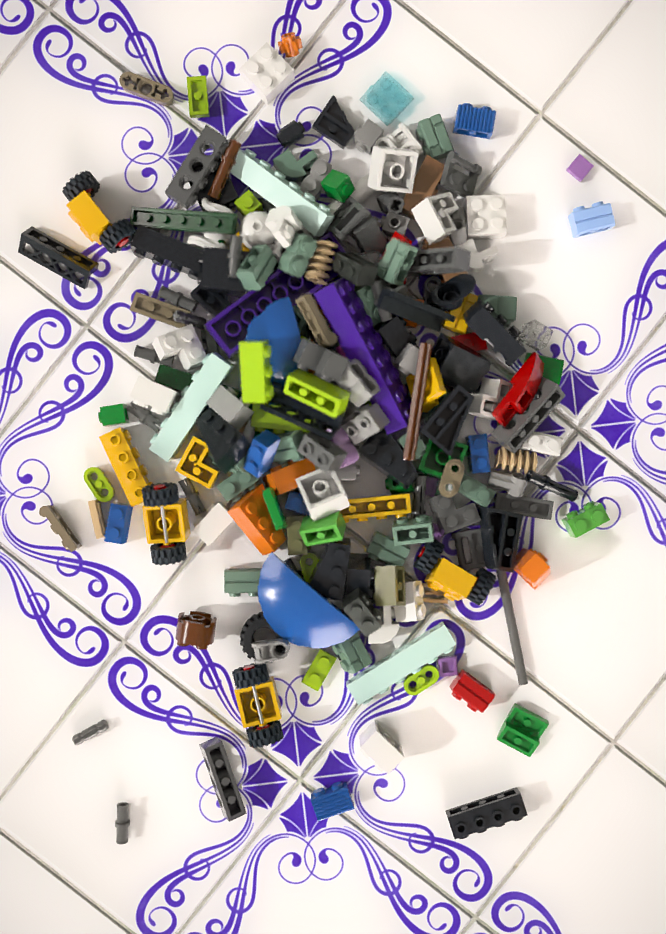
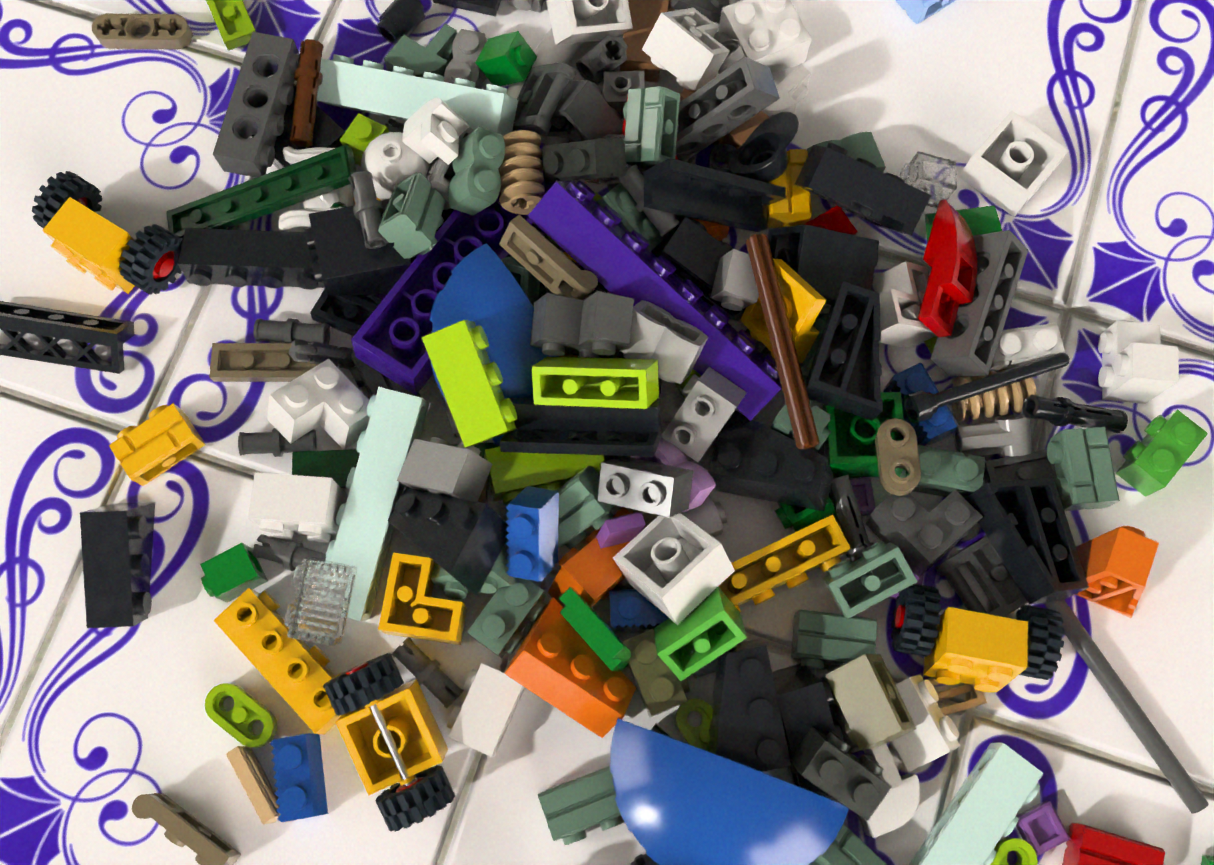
camera: 20 degrees left, 15 degrees down
(60, 390) = (117, 563): none -> black wedge
(94, 335) = (156, 444): none -> yellow brick
(152, 447) = (321, 601): none -> clear brick
(303, 466) = (620, 529): none -> medium lavender tile
(475, 457) = (922, 405): none -> black piece
(541, 514) = (1083, 468): none -> sand green brick
(583, 342) = (1013, 163): none -> white brick
(594, 470) = (1135, 362): none -> white brick

